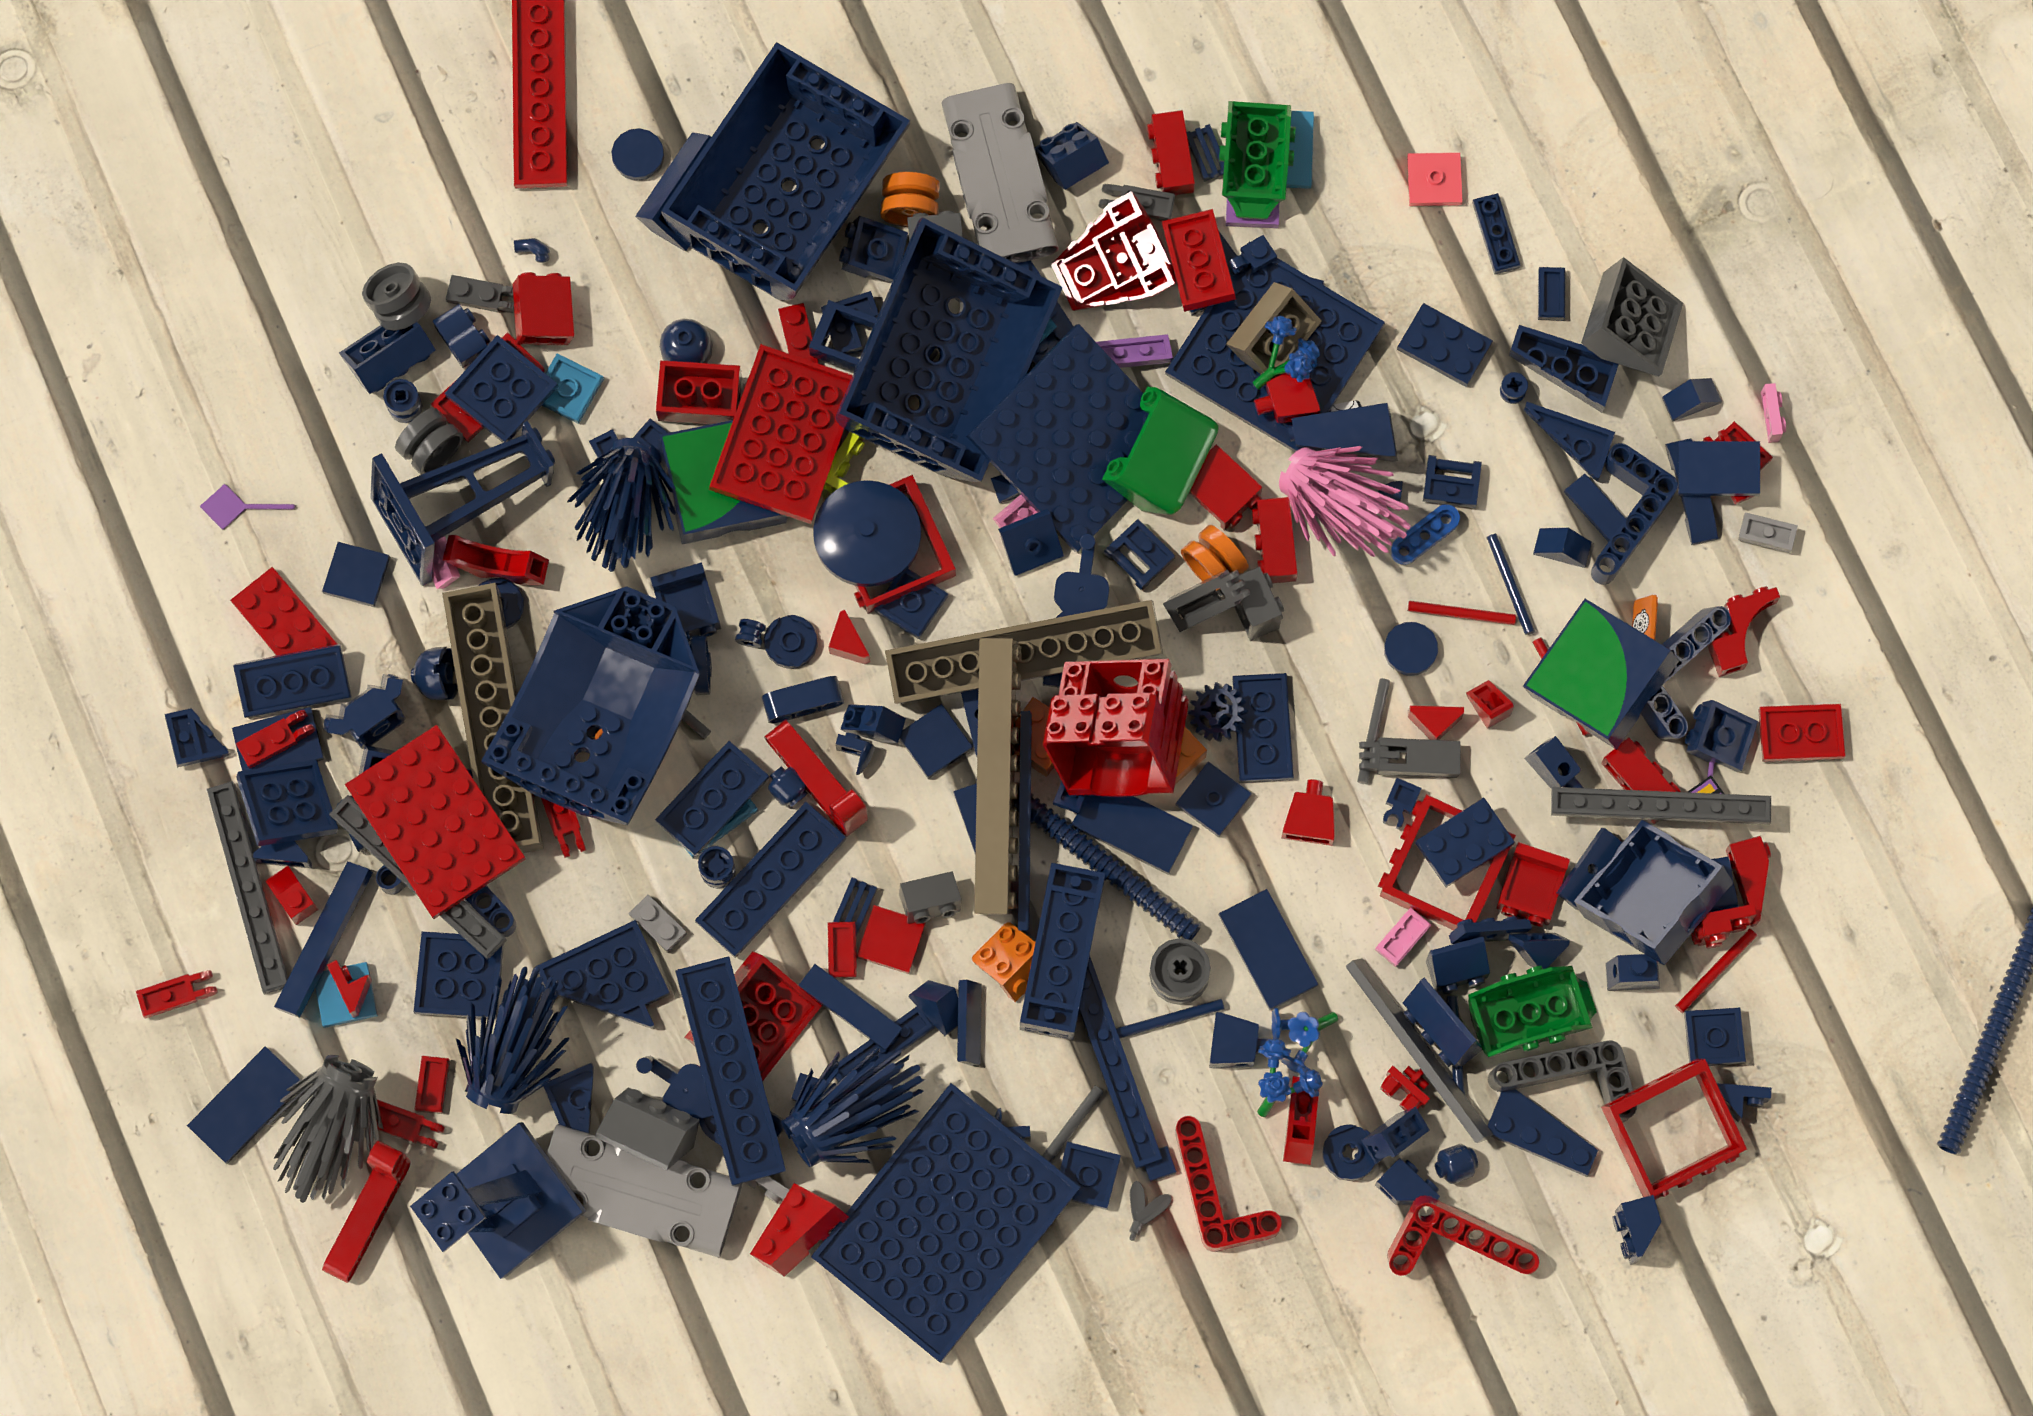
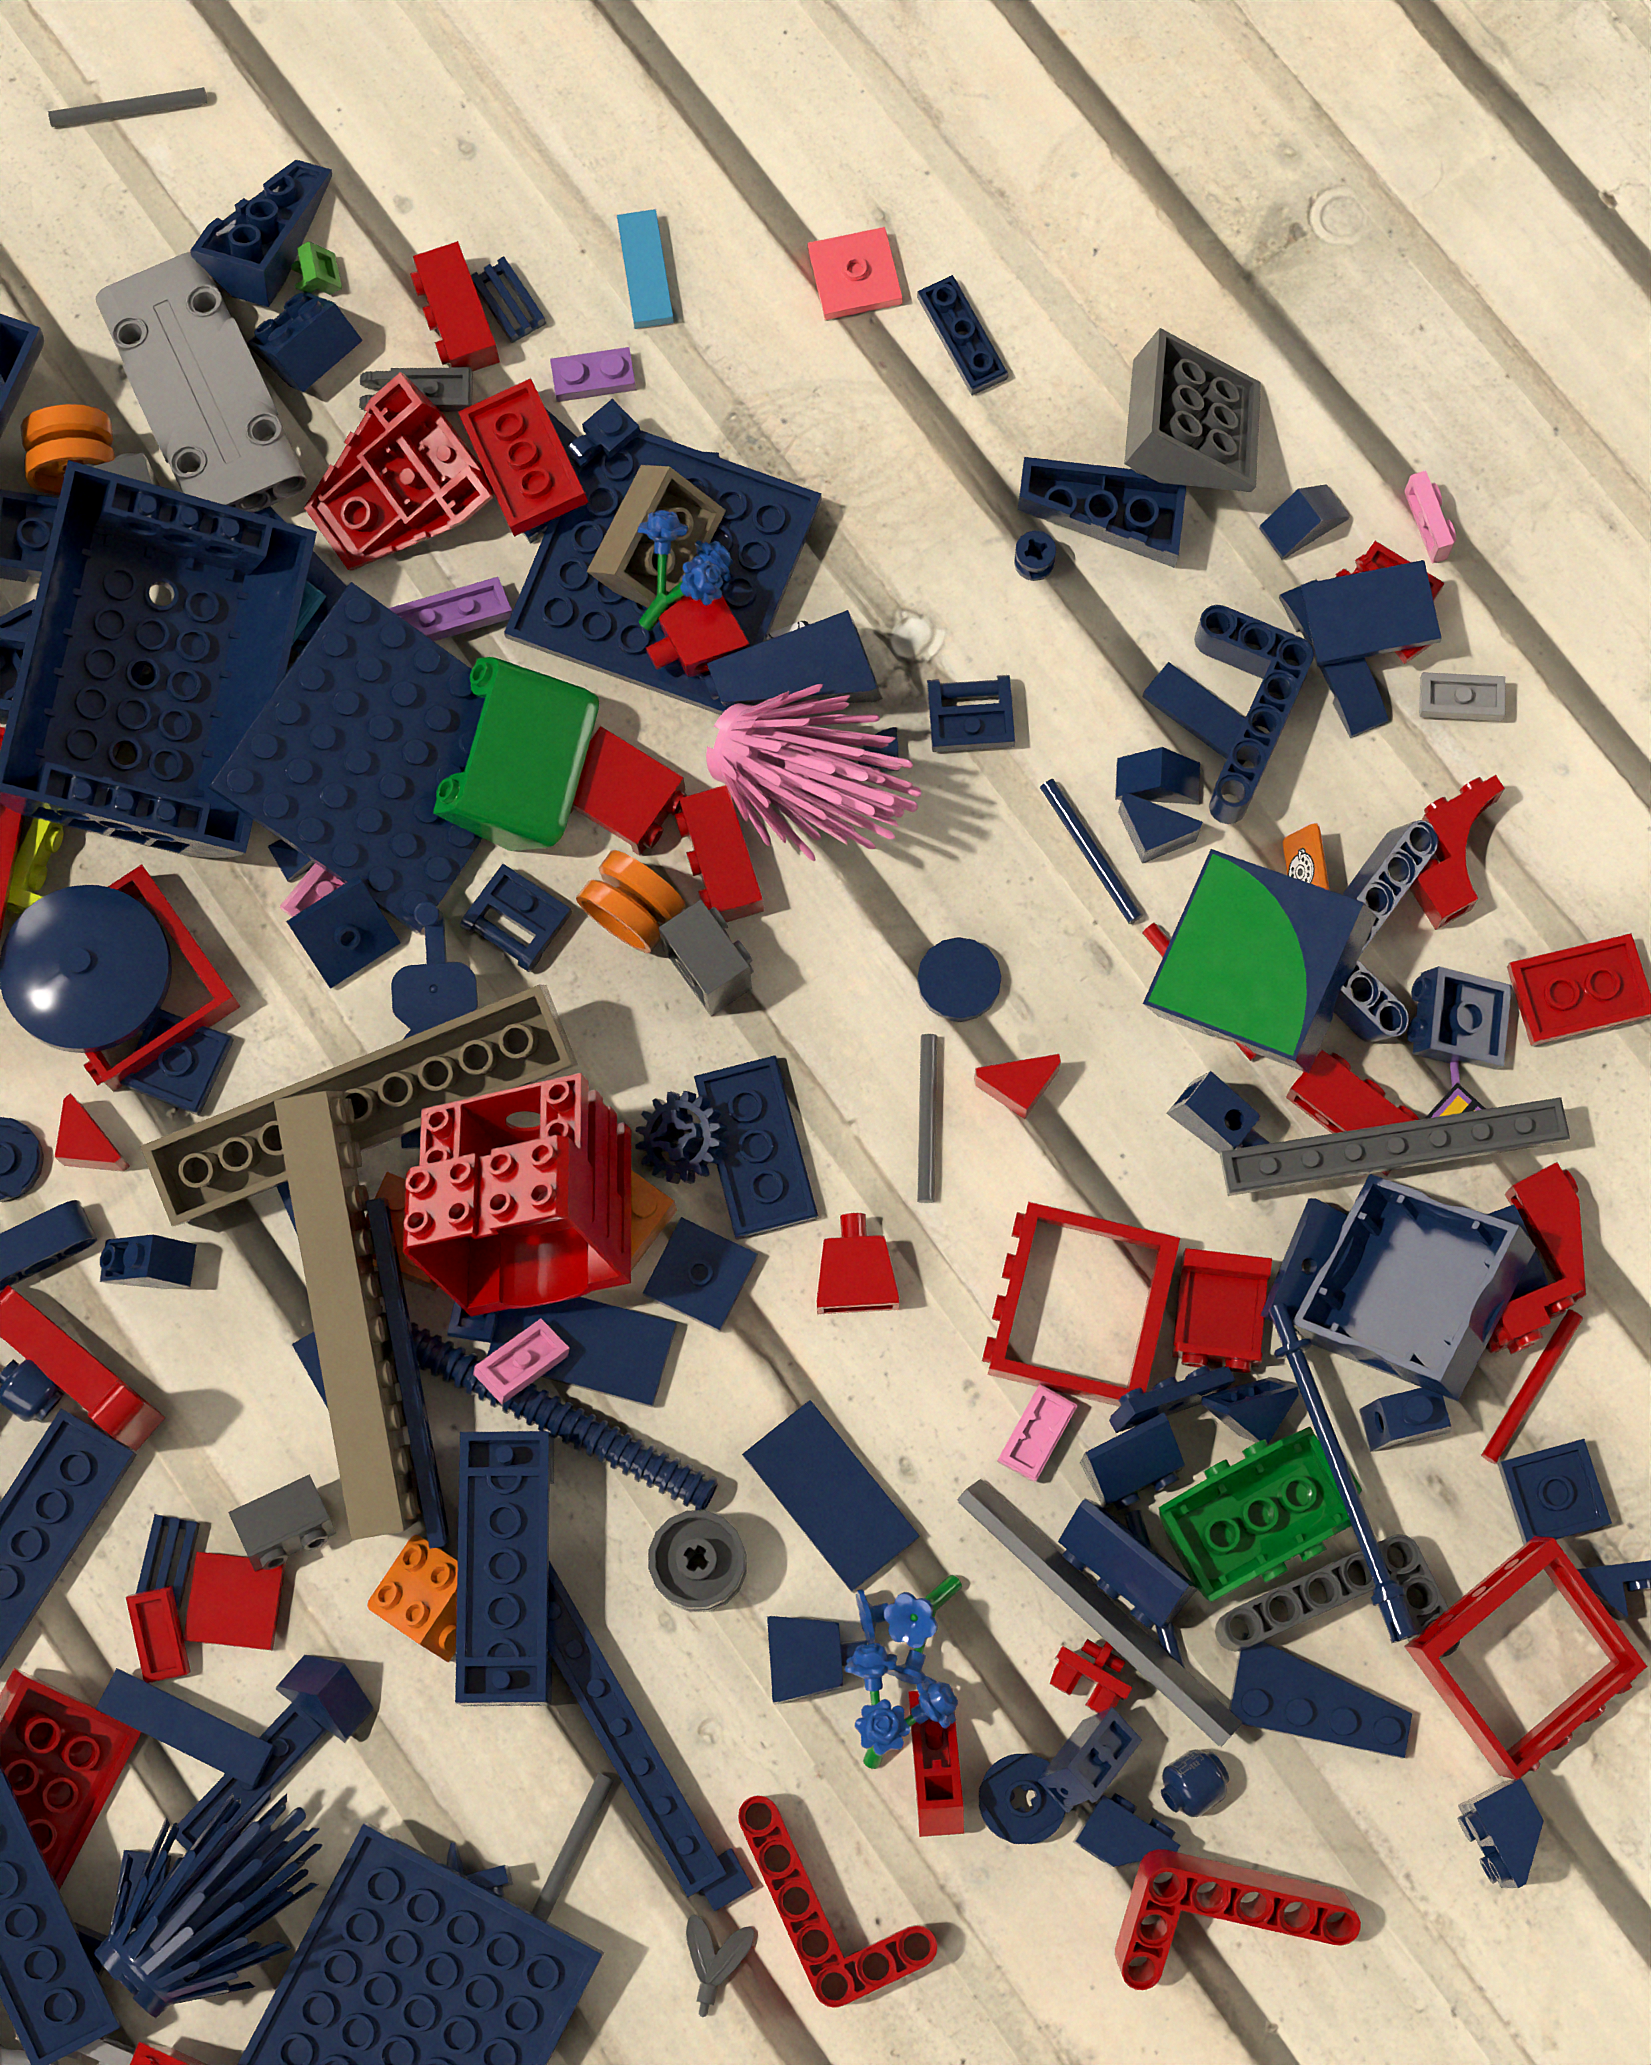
camera: 10 degrees left, 0 degrees up
(852, 744) = (122, 1303): dark blue plate -> none
(935, 741) = (249, 1271): dark blue tile -> none
(969, 1022) = (380, 1712): dark blue tile -> none
(1054, 82) = (259, 241): none -> dark blue wedge
(1088, 109) = (318, 269): none -> bright green tile
(1092, 1171) = (617, 1919): dark blue plate -> none
(1094, 828) = (521, 1361): none -> bright pink plate
(1170, 1018) = (697, 1638): dark blue bar -> none
(1203, 601) = (625, 970): dark grey hinge -> none
(1256, 157) = (580, 288): green slope -> none
(1401, 799) = (992, 1215): dark blue plate -> none
(1422, 757) = (1011, 1146): dark grey hinge -> none
(1431, 525) = (950, 785): blue plate -> none
(1444, 345) = (918, 512): dark blue plate -> none
(1460, 612) = (1025, 909): red bar -> none
(1464, 842) = (1103, 1266): dark blue plate -> none
(1490, 703) = (1097, 1039): red slope -> none
(1551, 293) = (1062, 406): dark blue tile -> none
(1554, 578) = (1156, 828): none -> dark blue slope
(1579, 439) = (1150, 612): dark blue wing -> none
(1597, 1073) = (1387, 1593): none -> dark blue bar

